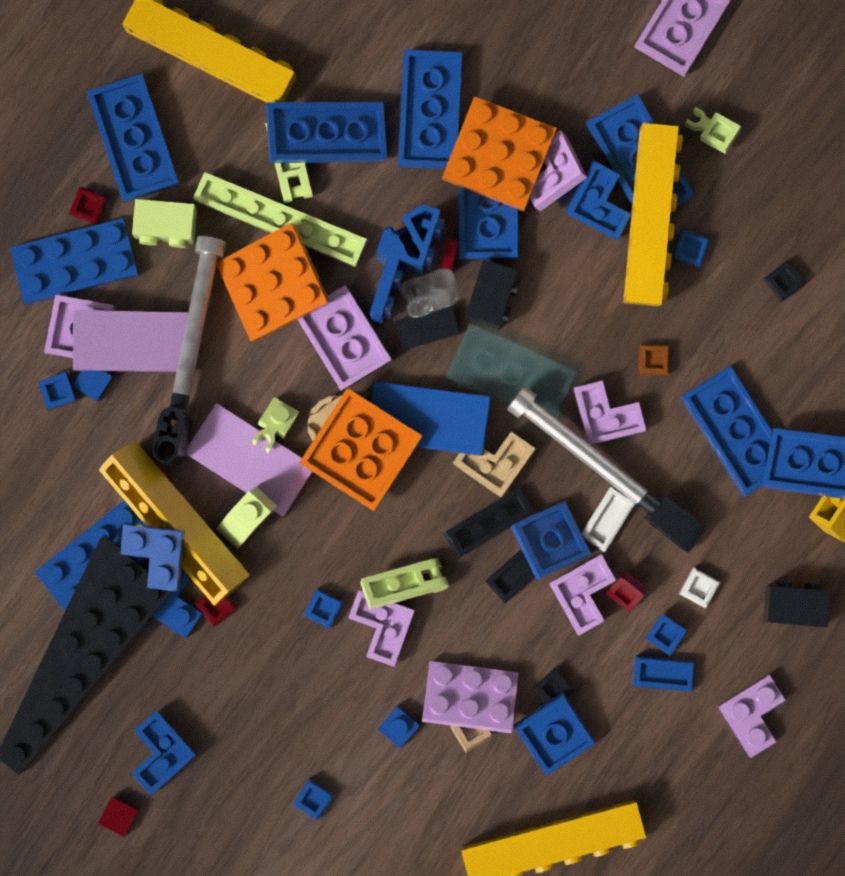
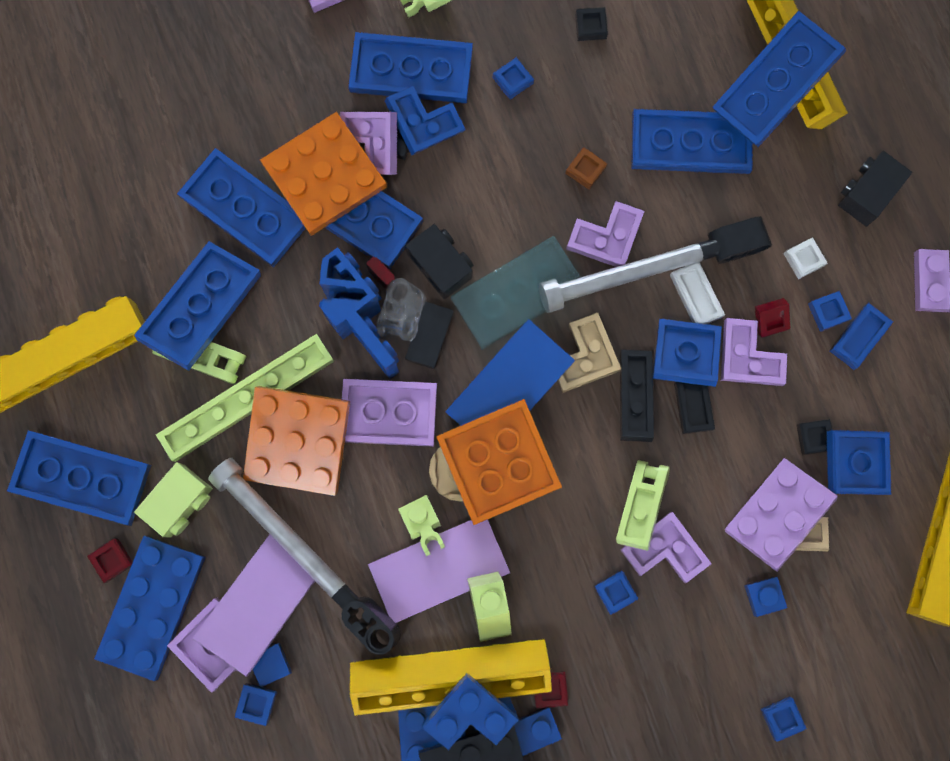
camera: 60 degrees left, 5 degrees down
(651, 215) = (465, 83): yellow brick -> none

